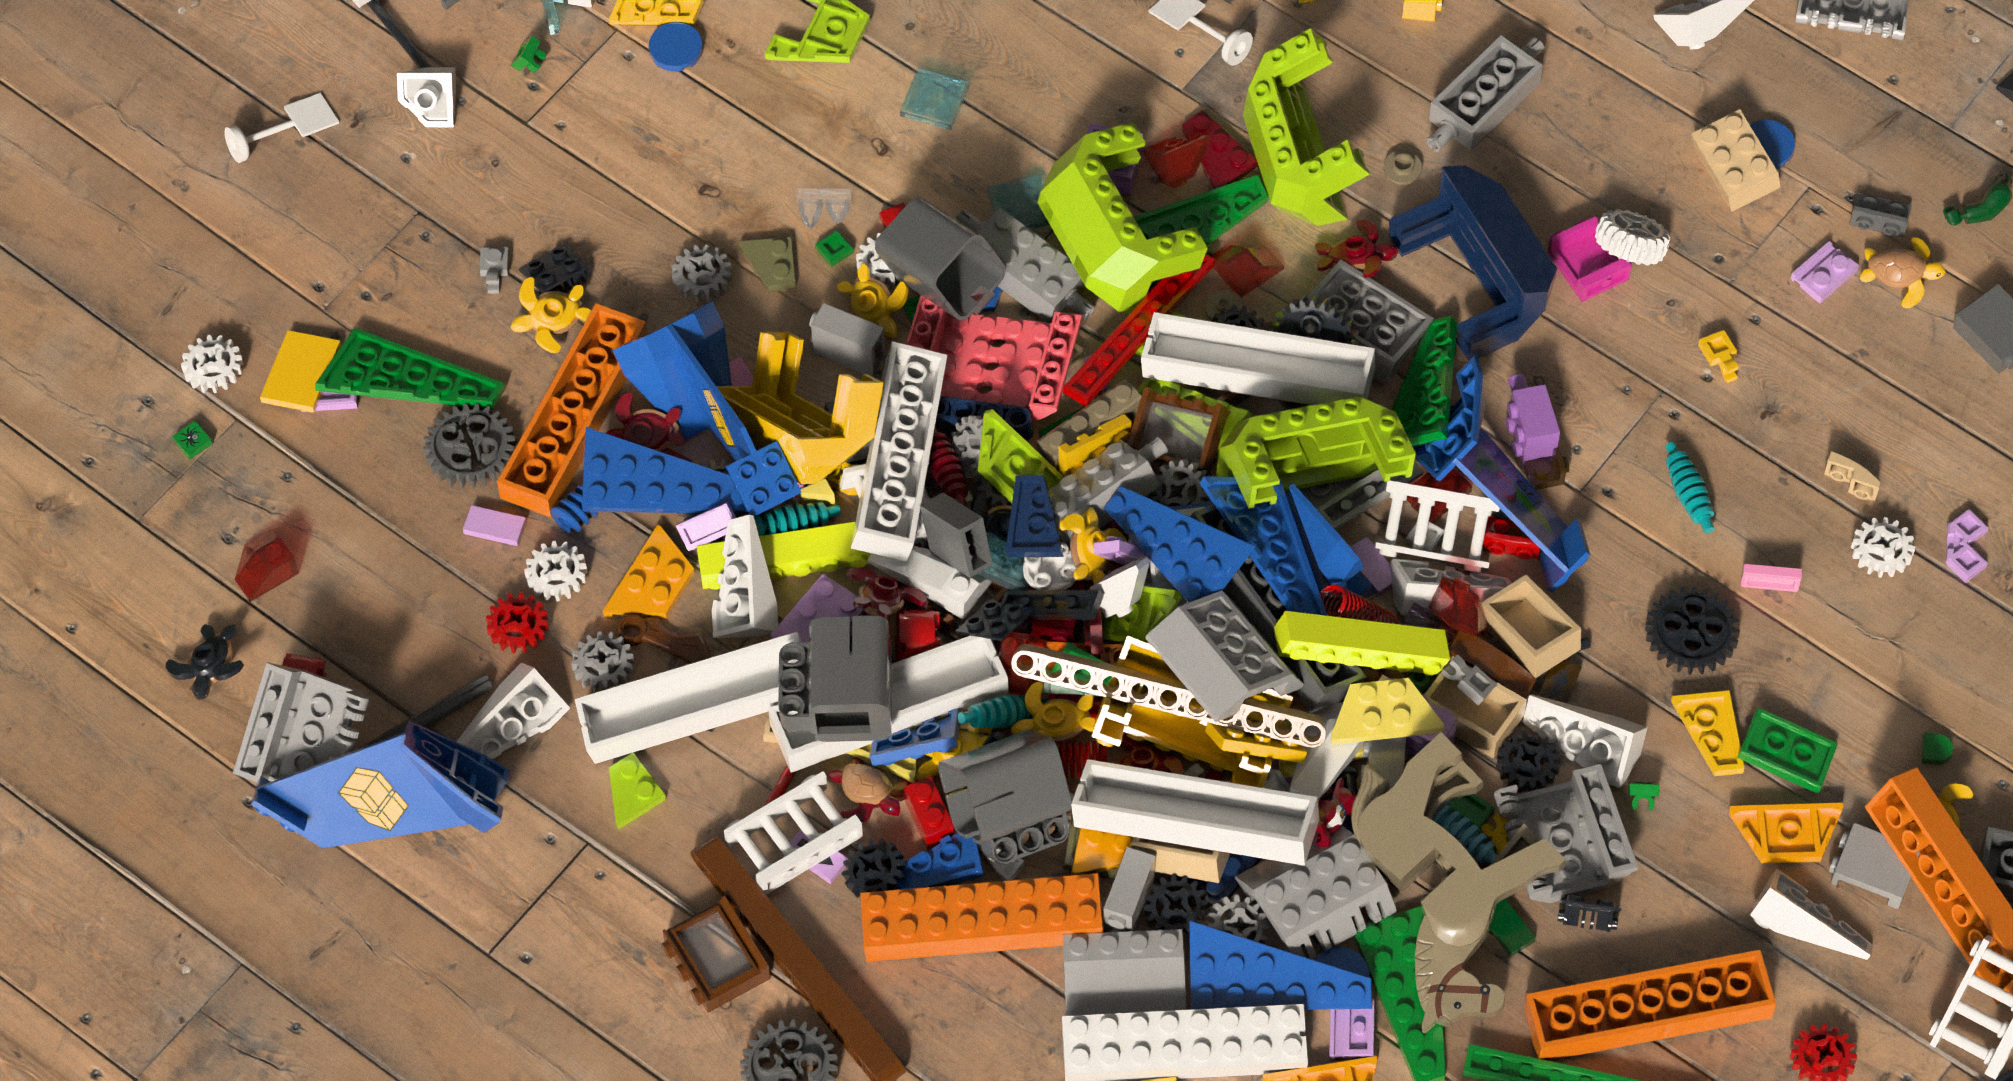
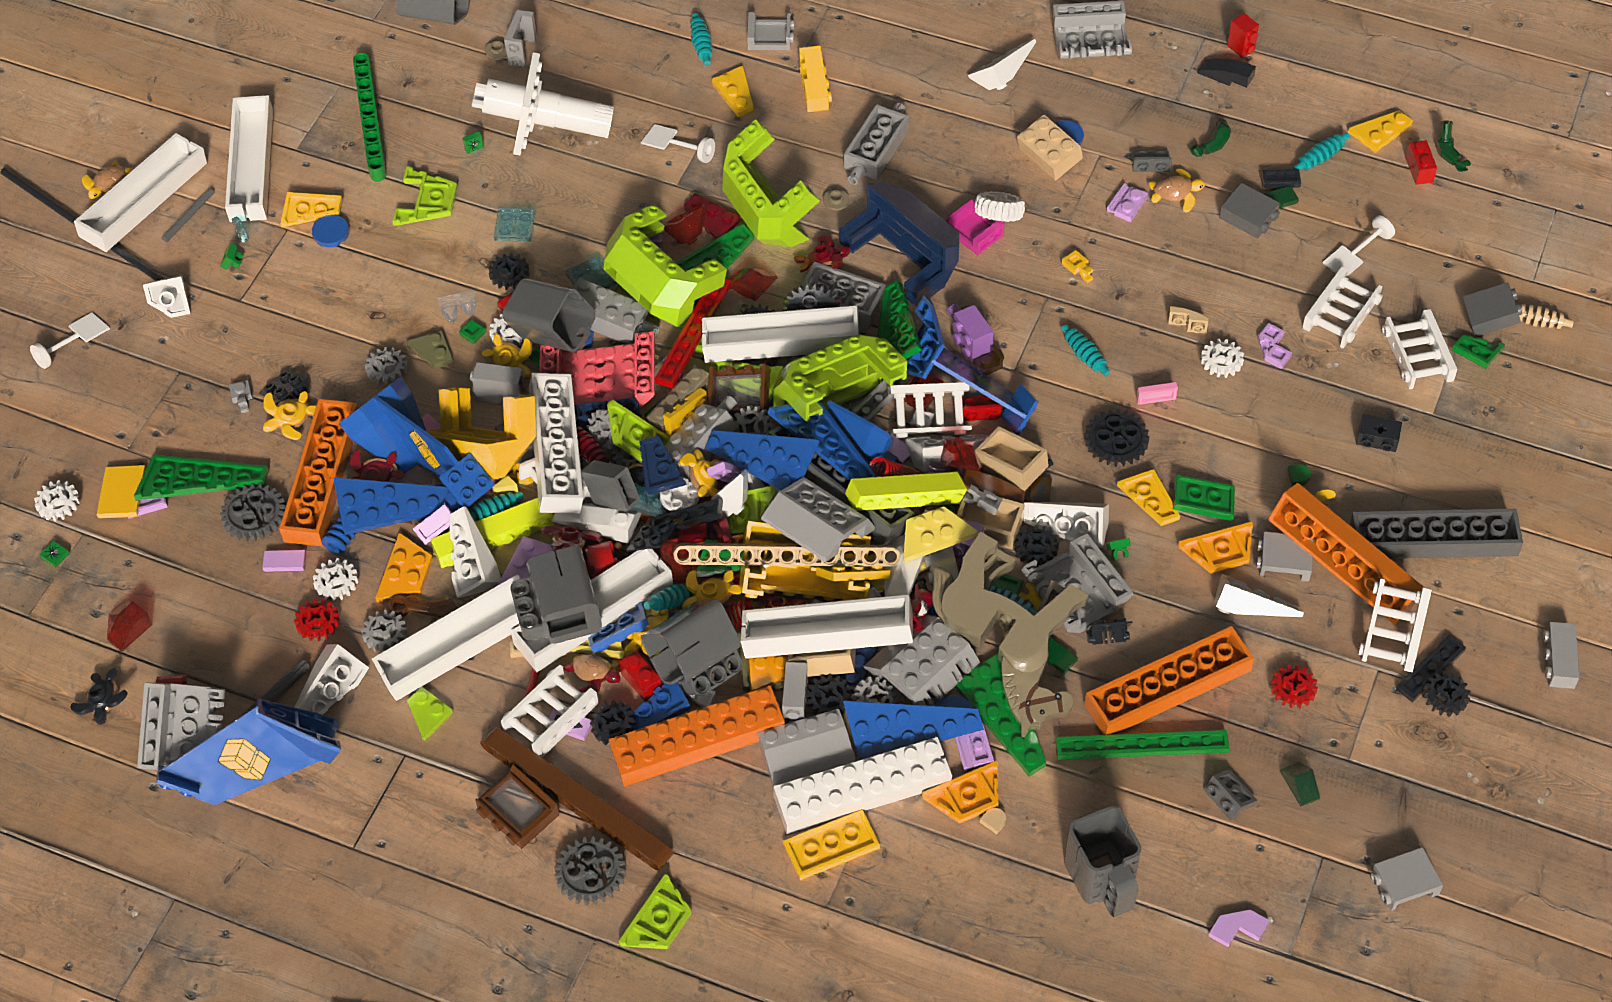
camera: 15 degrees left, 5 degrees down
(894, 166) = (508, 271): none -> black gear

